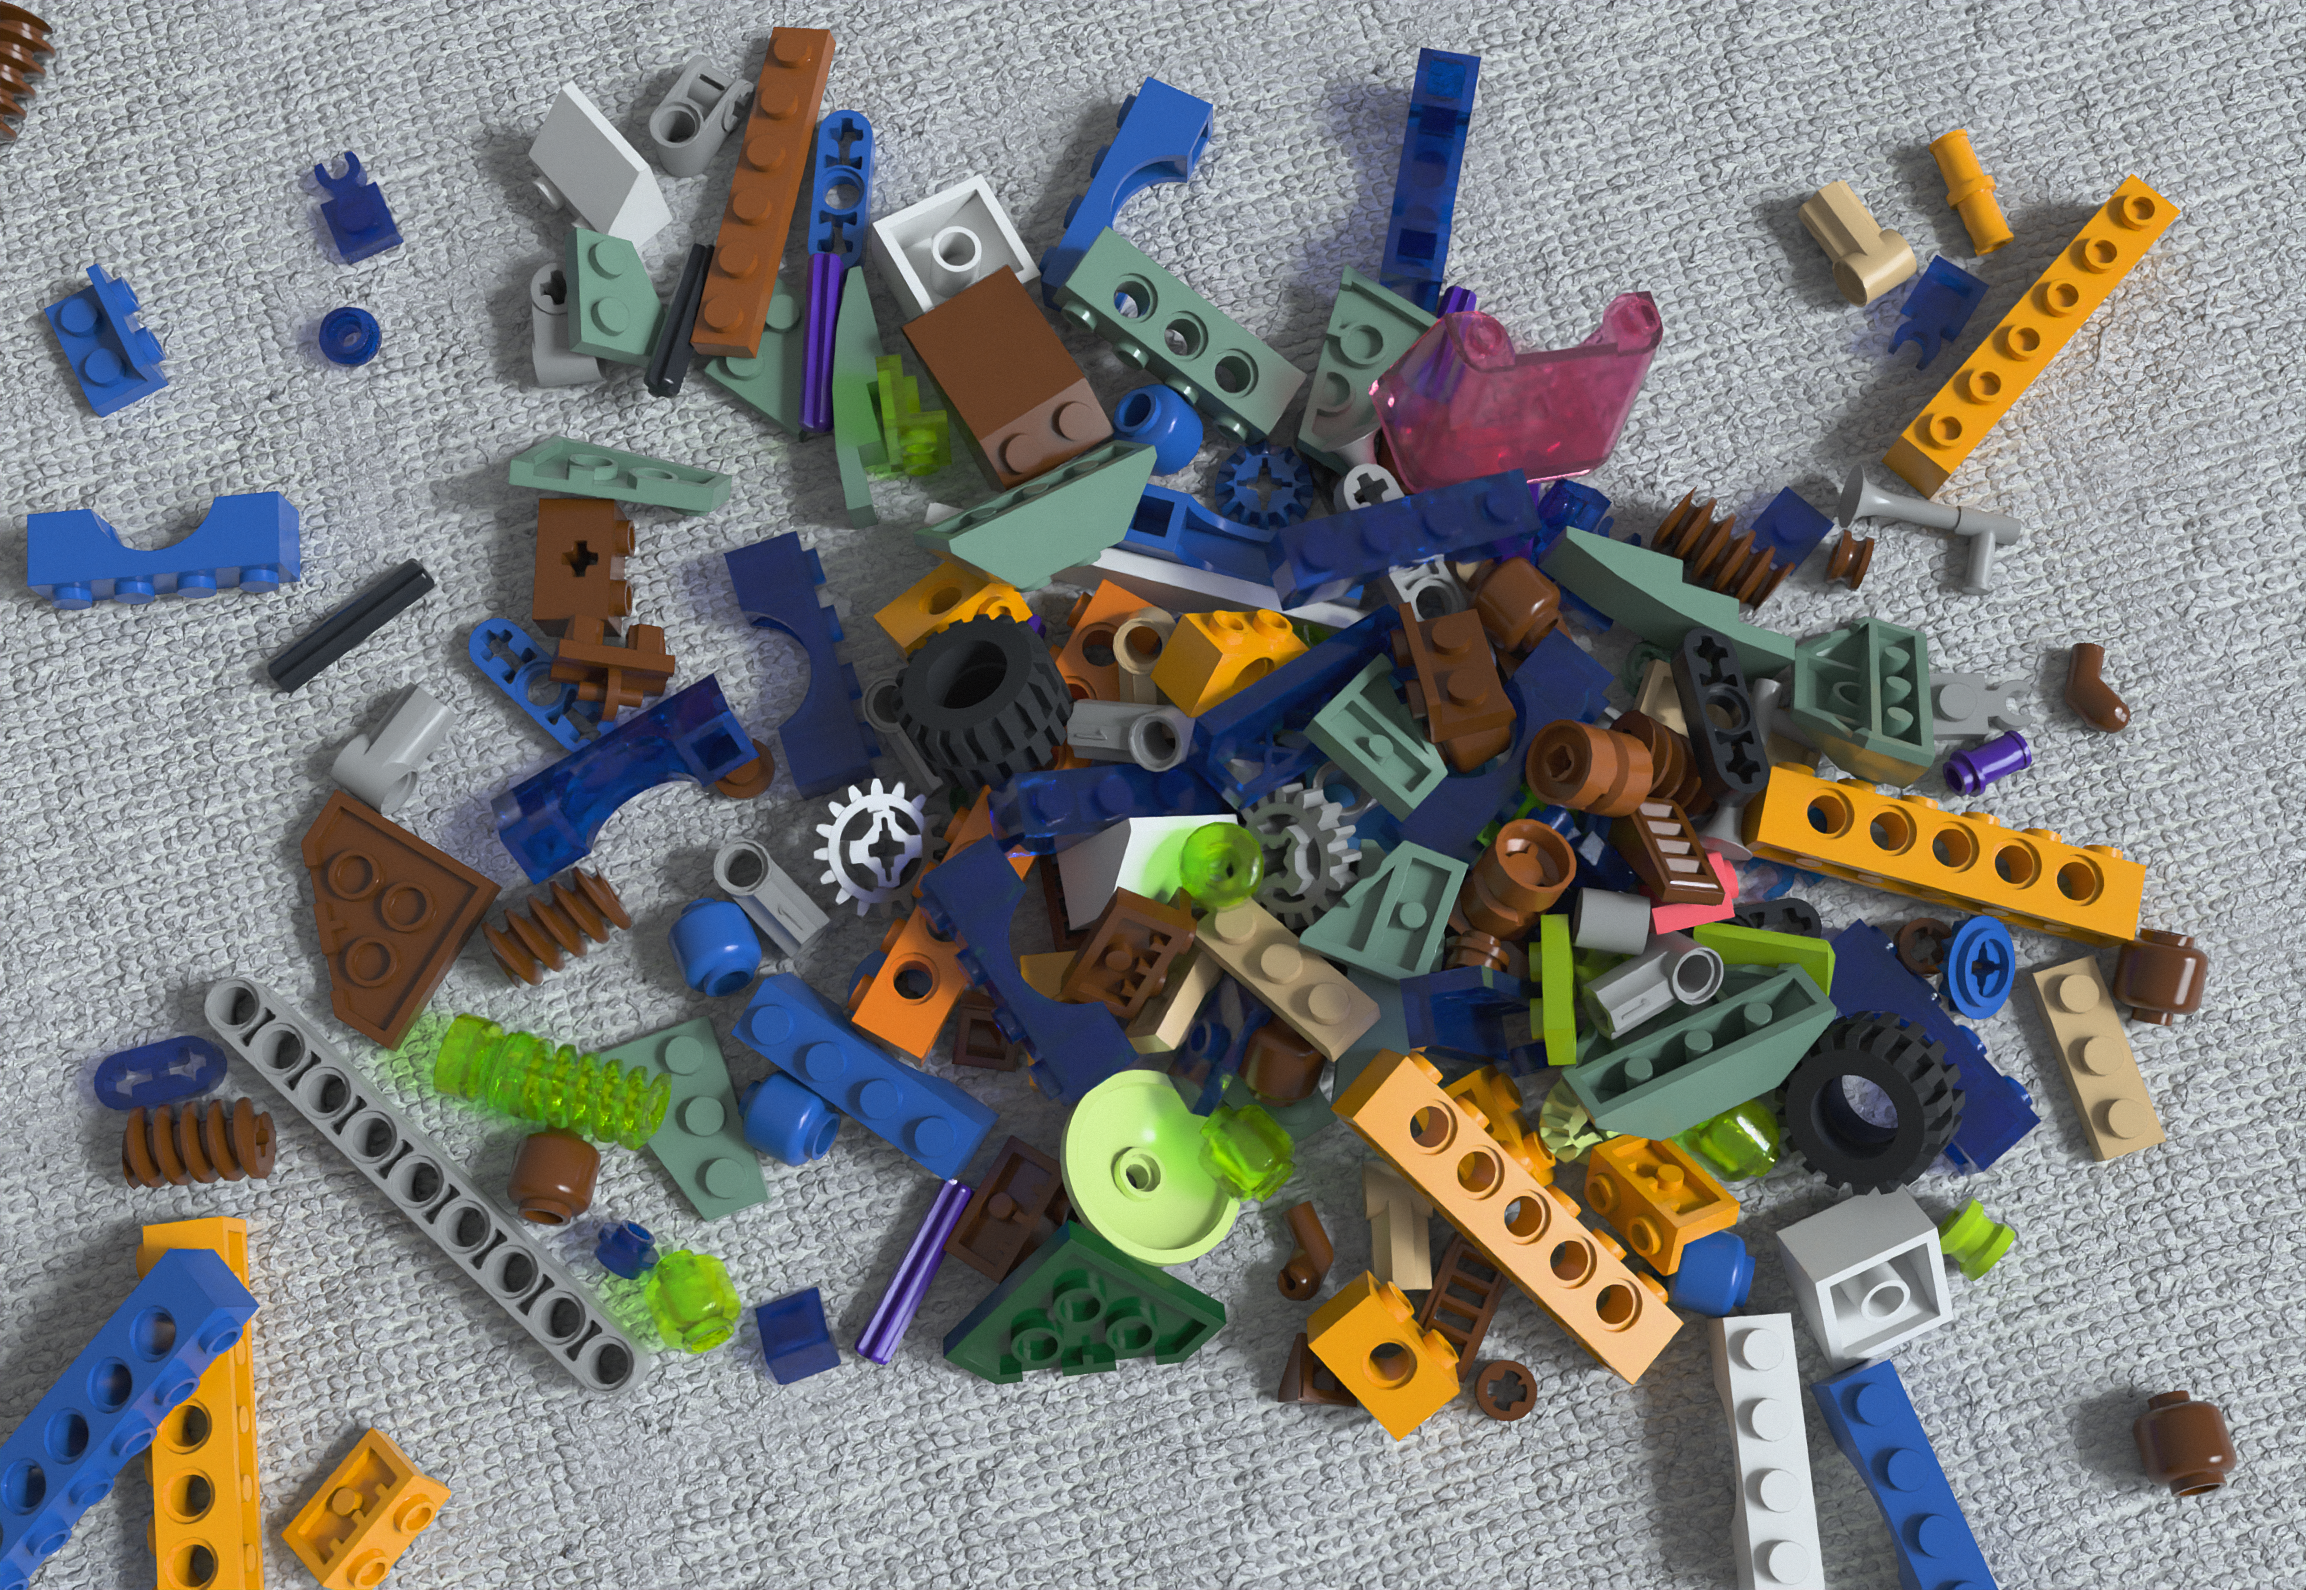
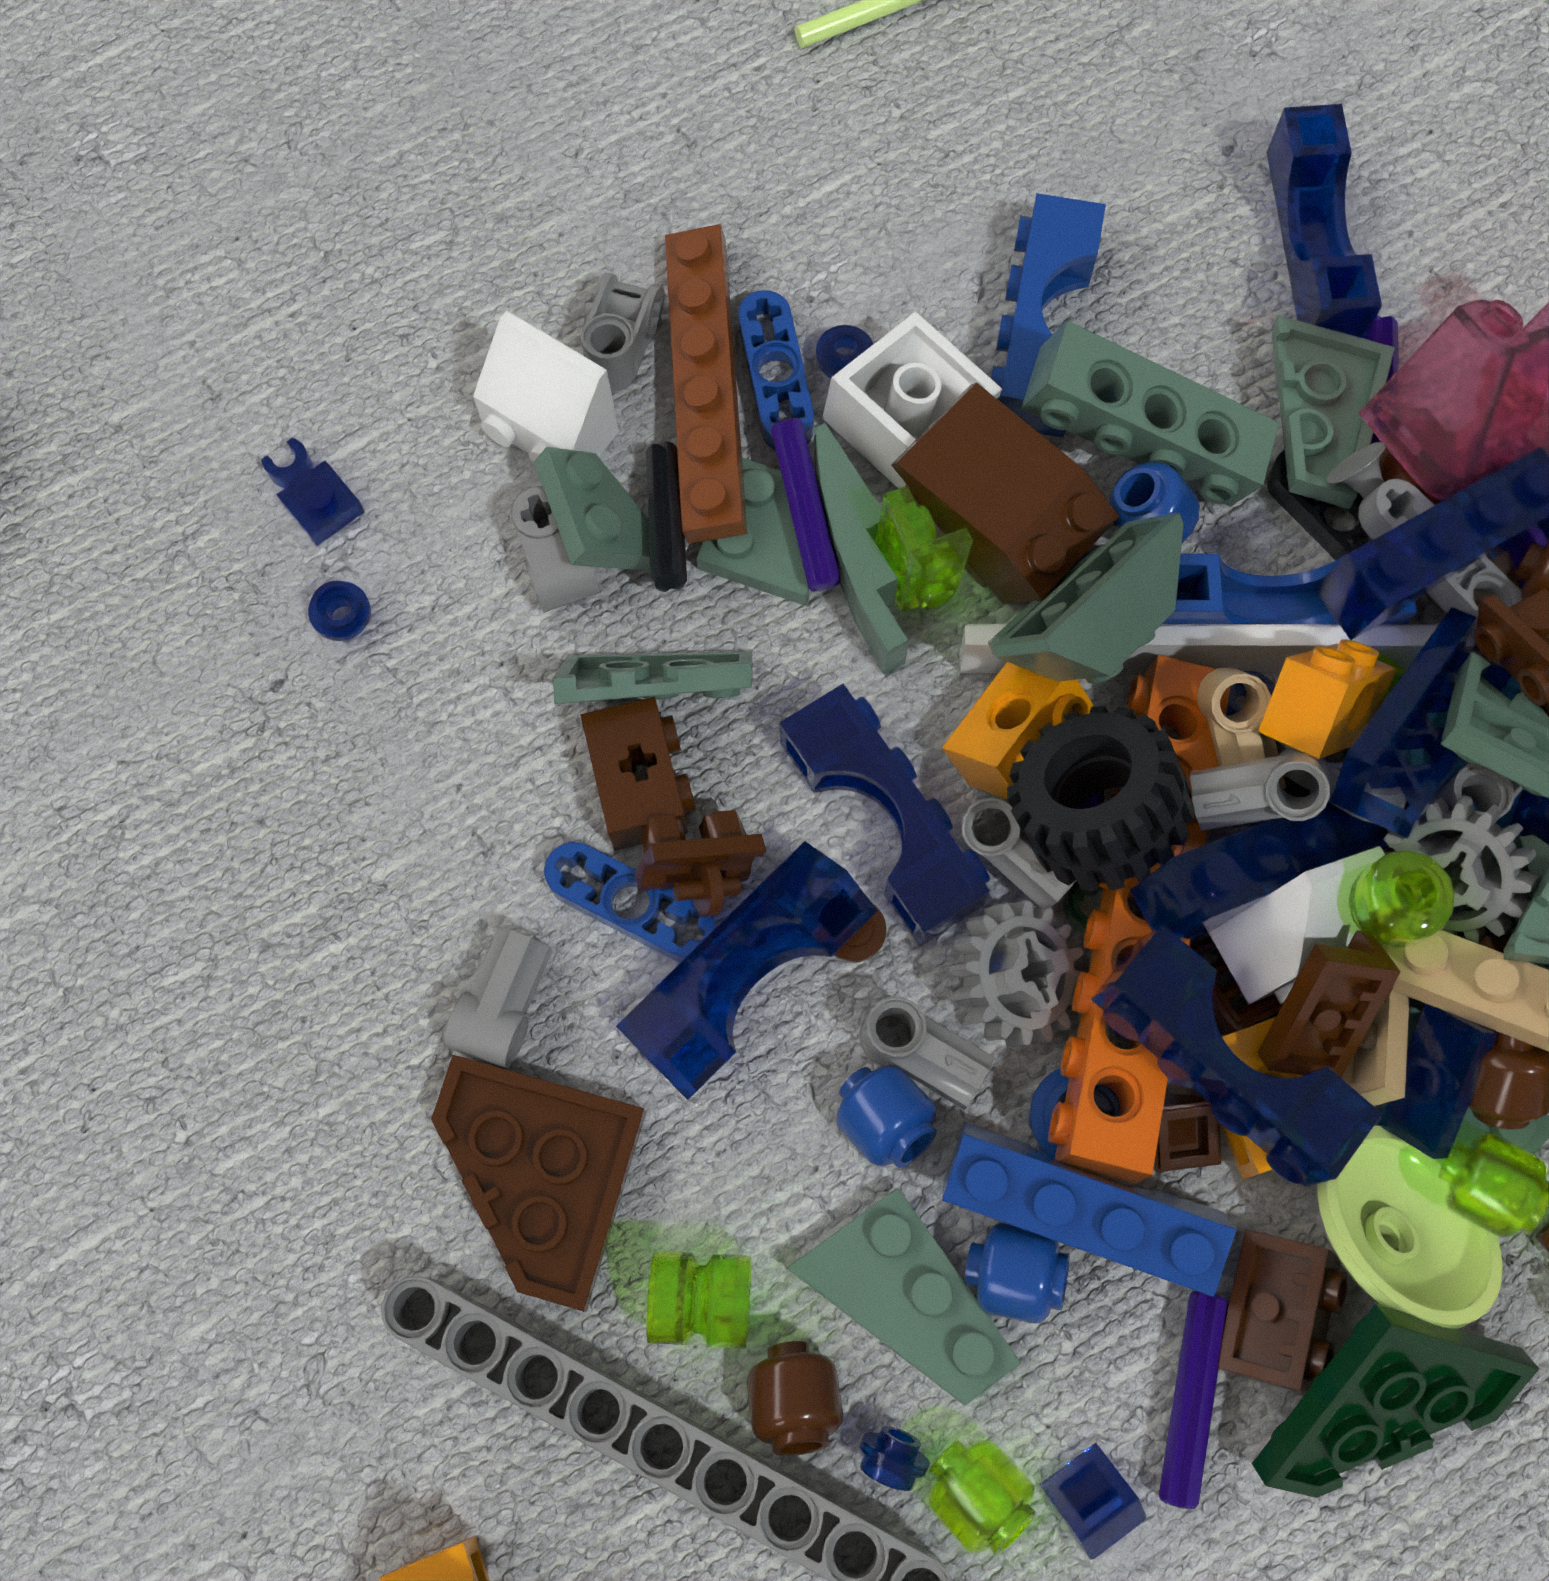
camera: 15 degrees left, 5 degrees down
(106, 345) = (96, 676): blue bracket -> none
(157, 1060) = (338, 1388): clear blue beam -> none
(197, 1145) = (409, 1470): reddish brown piece -> none
(241, 544) = (287, 835): blue arch -> none
(350, 625) = (417, 888): black axle -> none
(556, 926) = (718, 1135): reddish brown piece -> none
(593, 1099) = (820, 1304): clear neon green piece -> none
(910, 177) = (840, 337): none -> clear blue plate
(1285, 470) = (1239, 525): blue gear -> none

